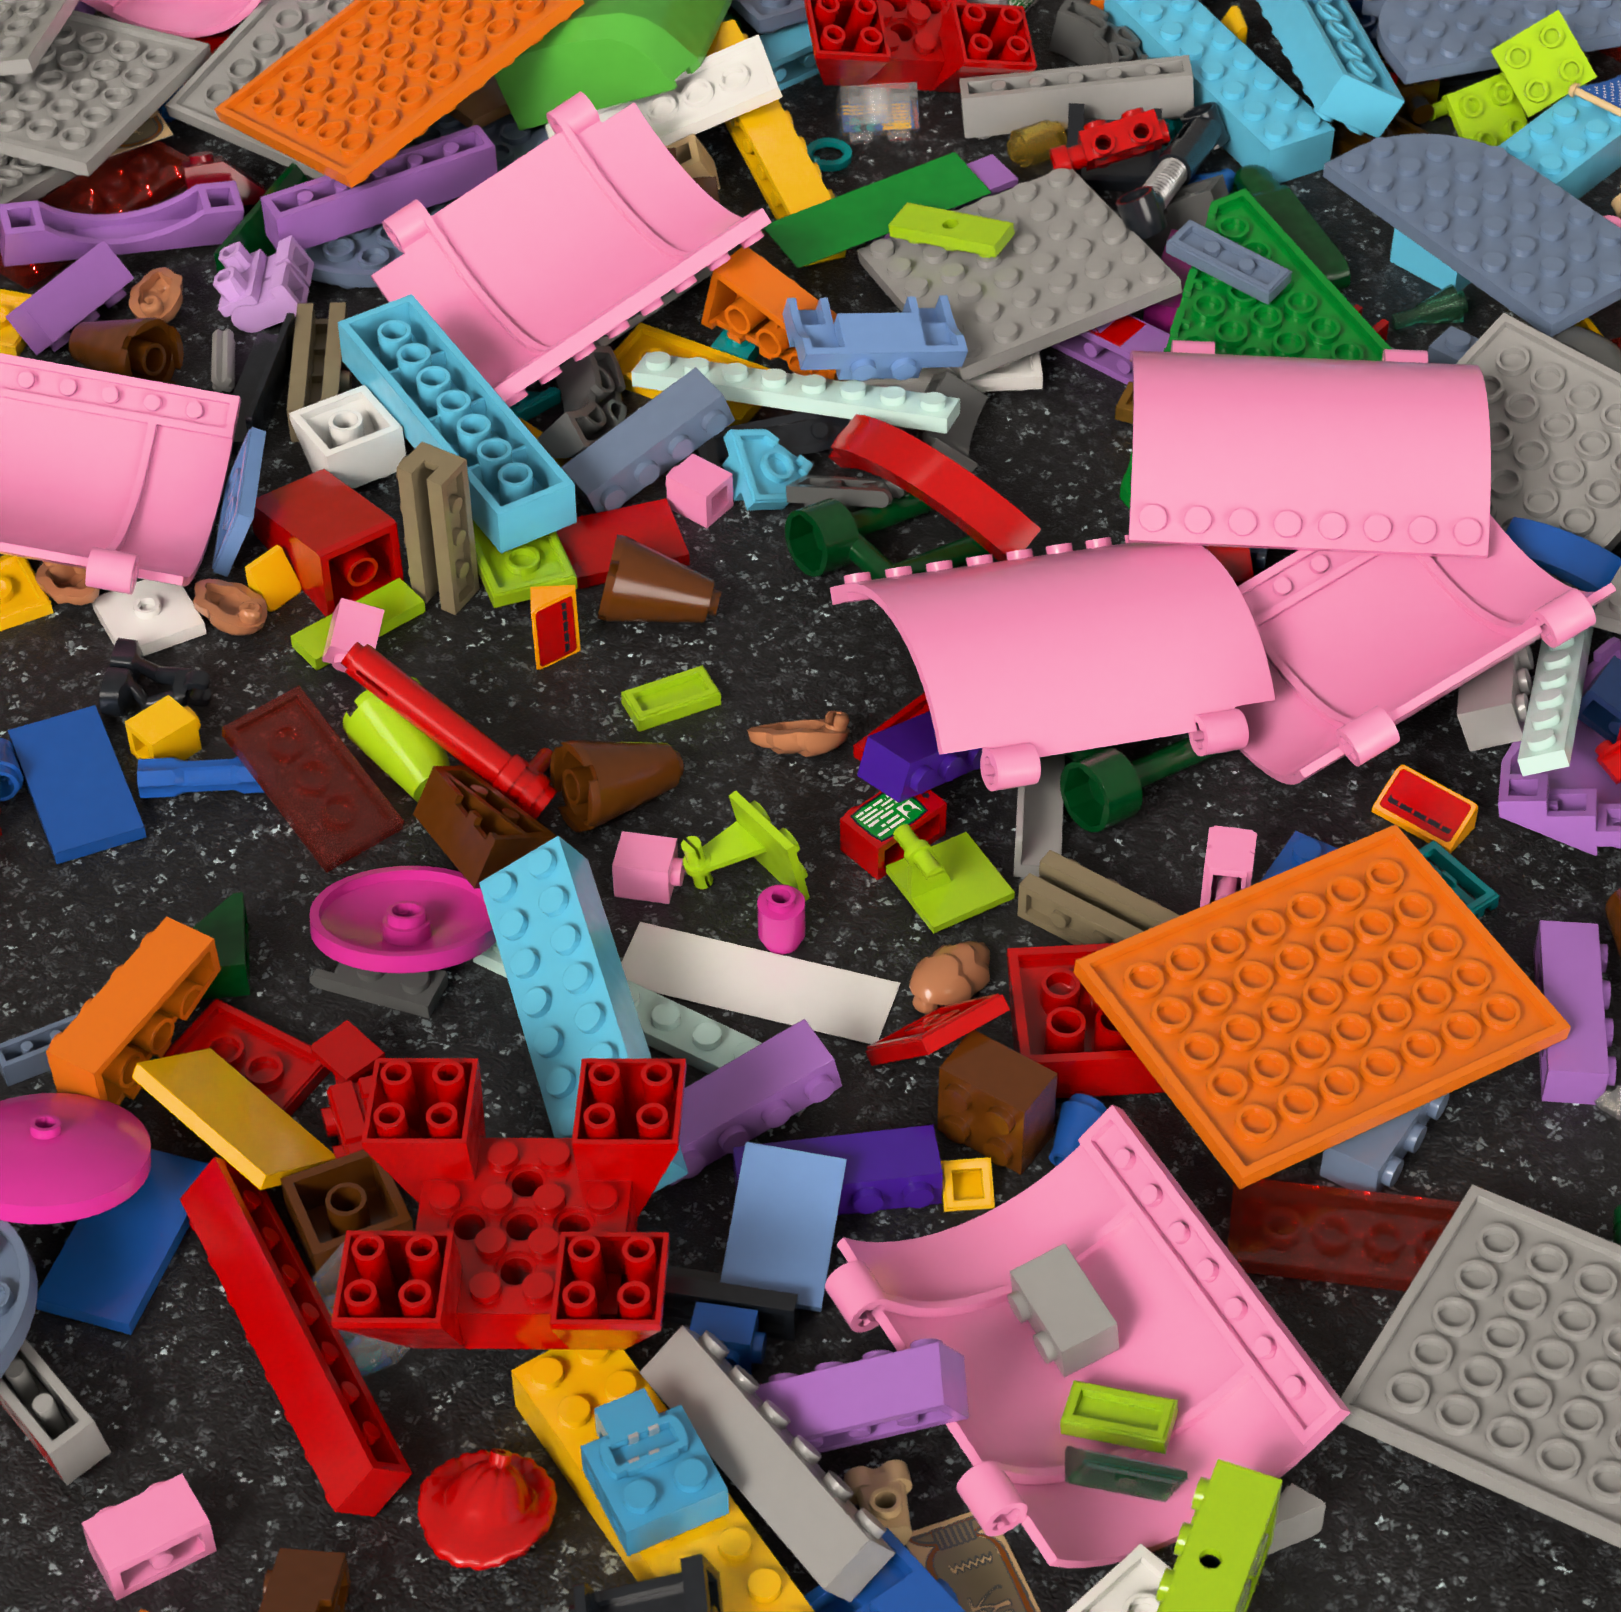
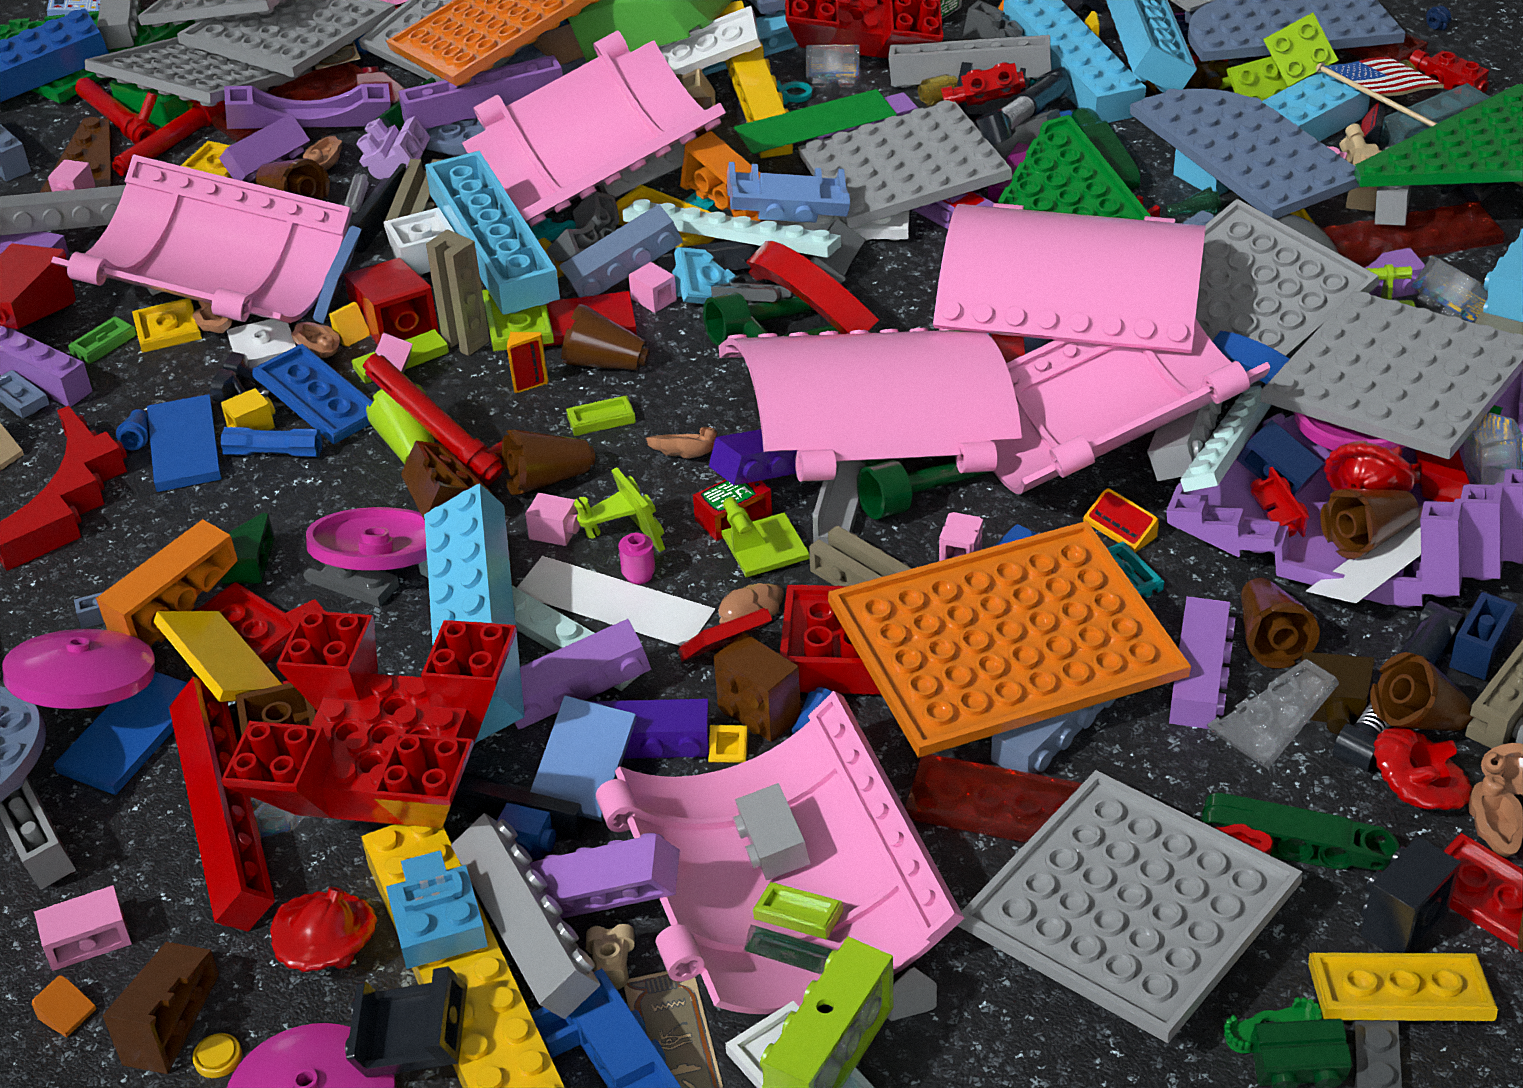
camera: 10 degrees right, 5 degrees down
(237, 676) = (315, 392): none -> blue tile
(312, 778) = (338, 447): clear red tile -> none
(951, 230) = (860, 133): lime tile -> none
(1228, 262) = (1047, 159): sand blue tile -> none

